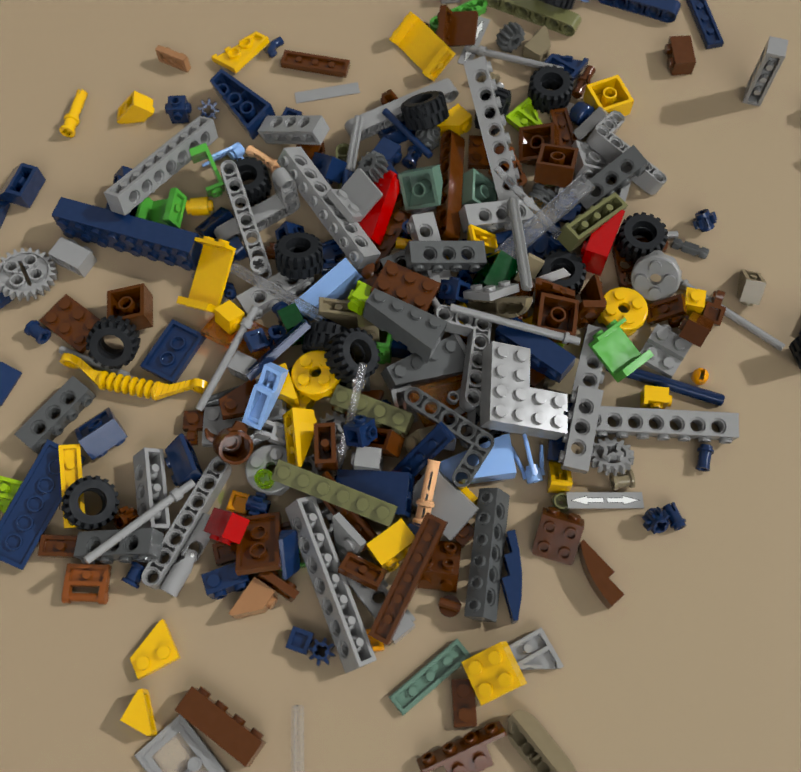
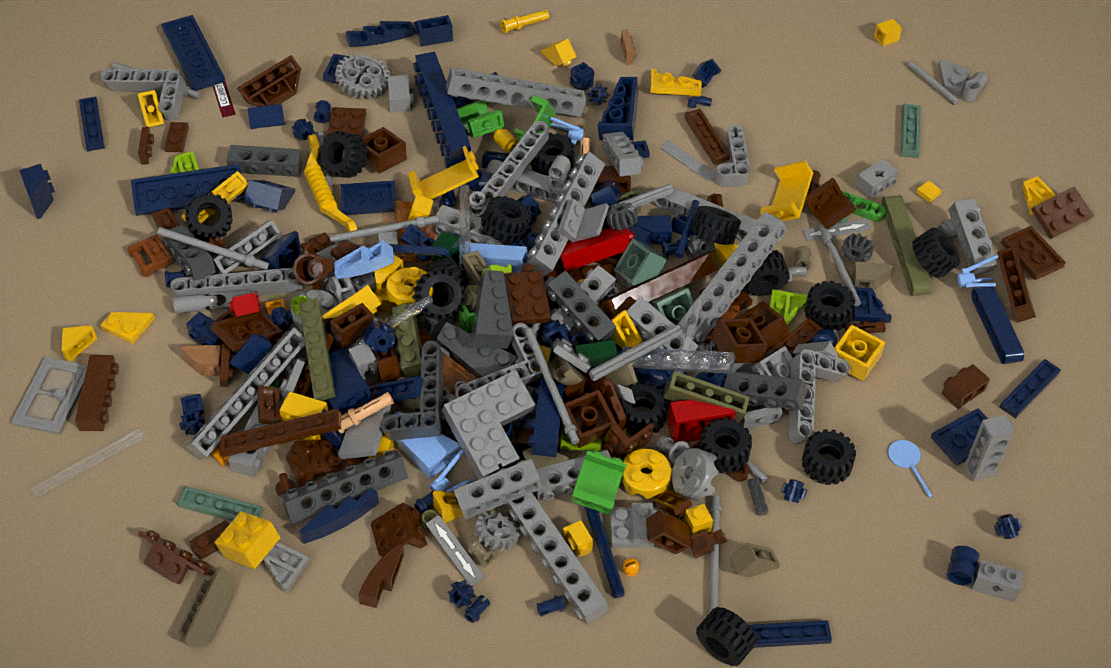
camera: 50 degrees right, 15 degrees down
(46, 360) = (302, 129): none -> dark blue gear
(248, 20) = (706, 71): none -> dark blue bracket
(365, 61) = (738, 169): none -> light grey beam
(542, 495) = (425, 503): none -> dark blue pin
(621, 276) = (666, 445): none -> light grey piece
(693, 167) = (835, 445): none -> black tyre
(712, 132) = (907, 455): none -> light blue piece
(724, 83) = (959, 436): none -> dark blue plate

